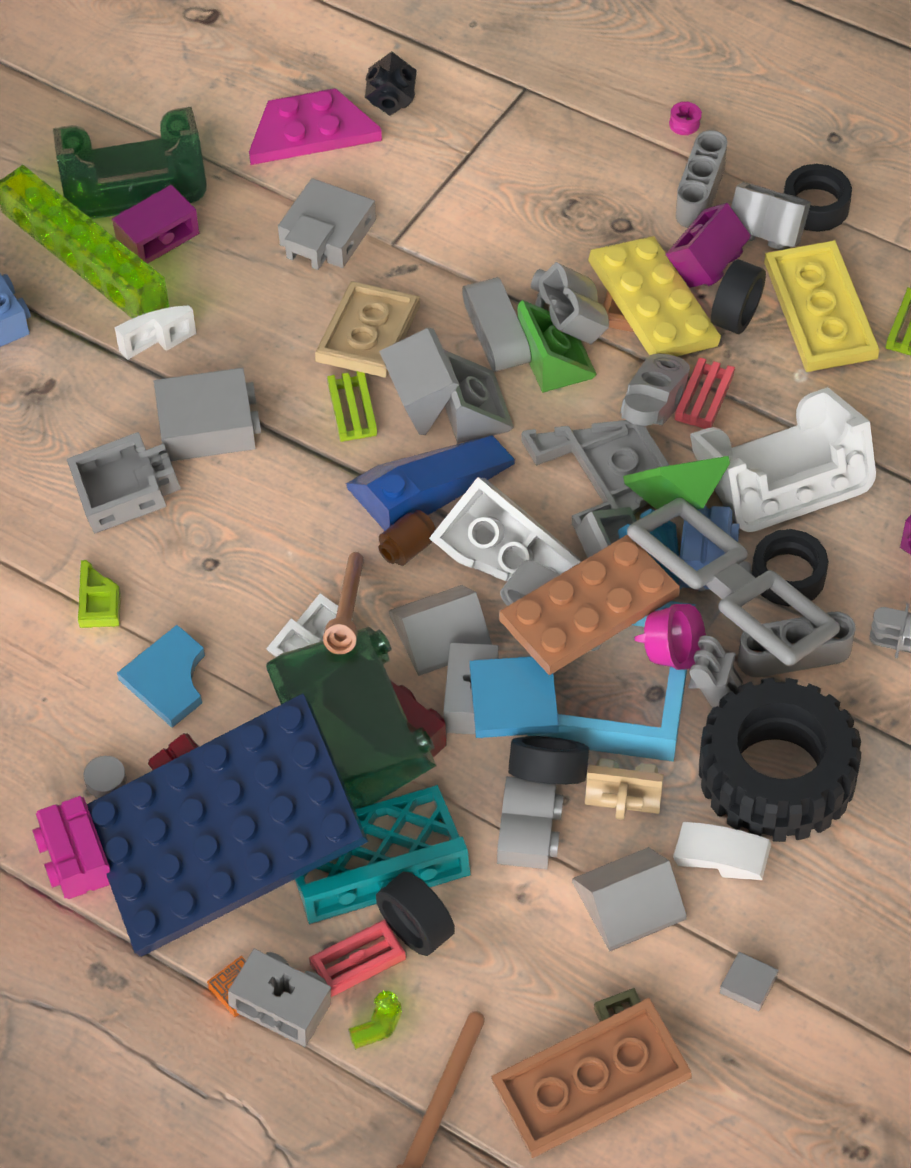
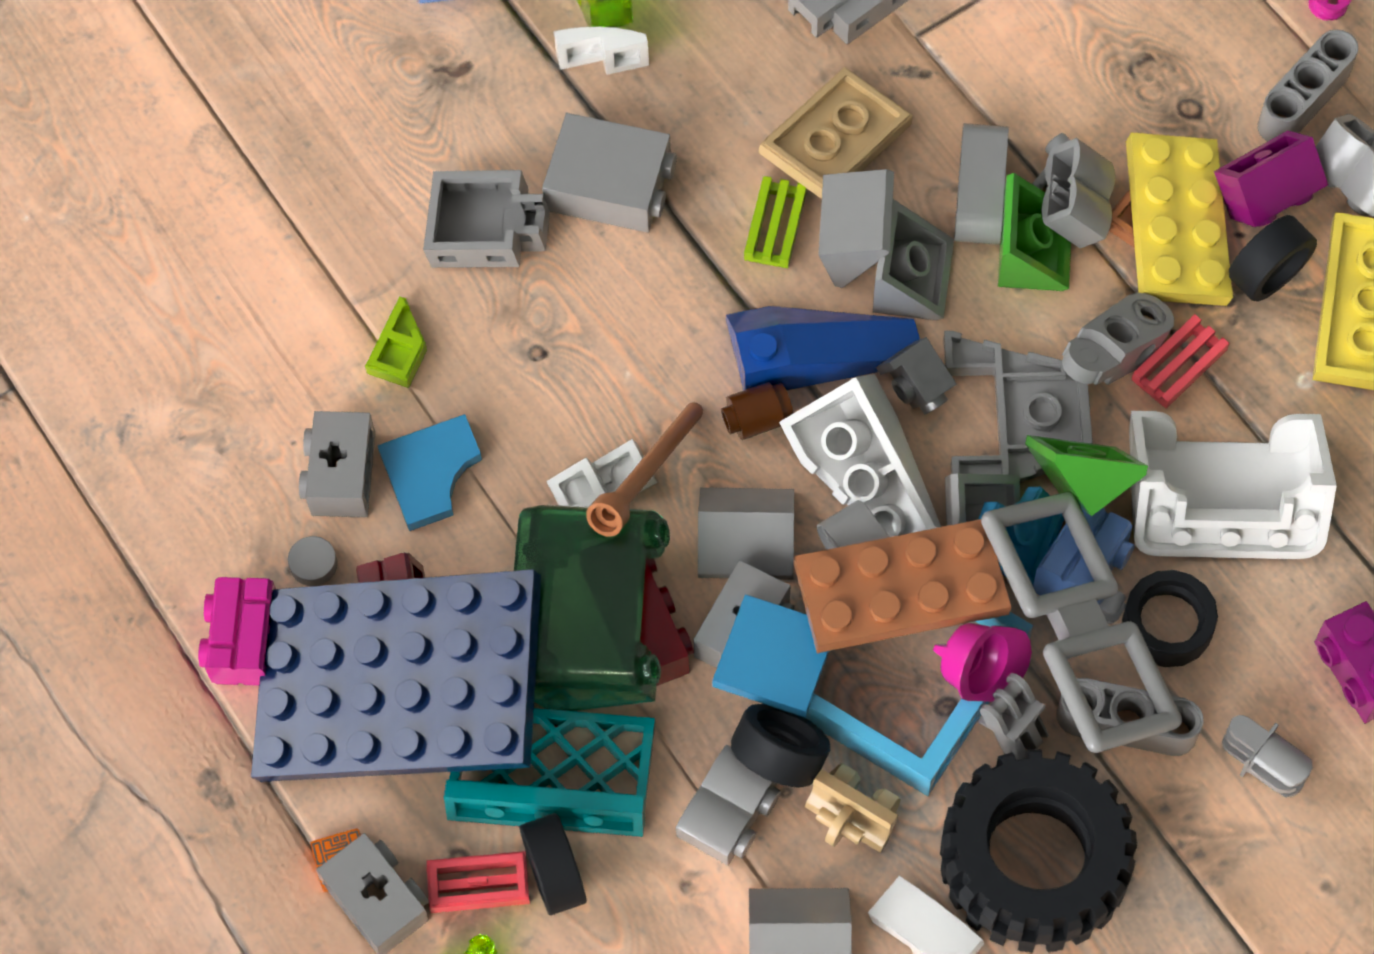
camera: 25 degrees right, 10 degrees up
(94, 696) = (344, 488): none -> light grey brick
(519, 468) = (919, 376): none -> flat silver brick

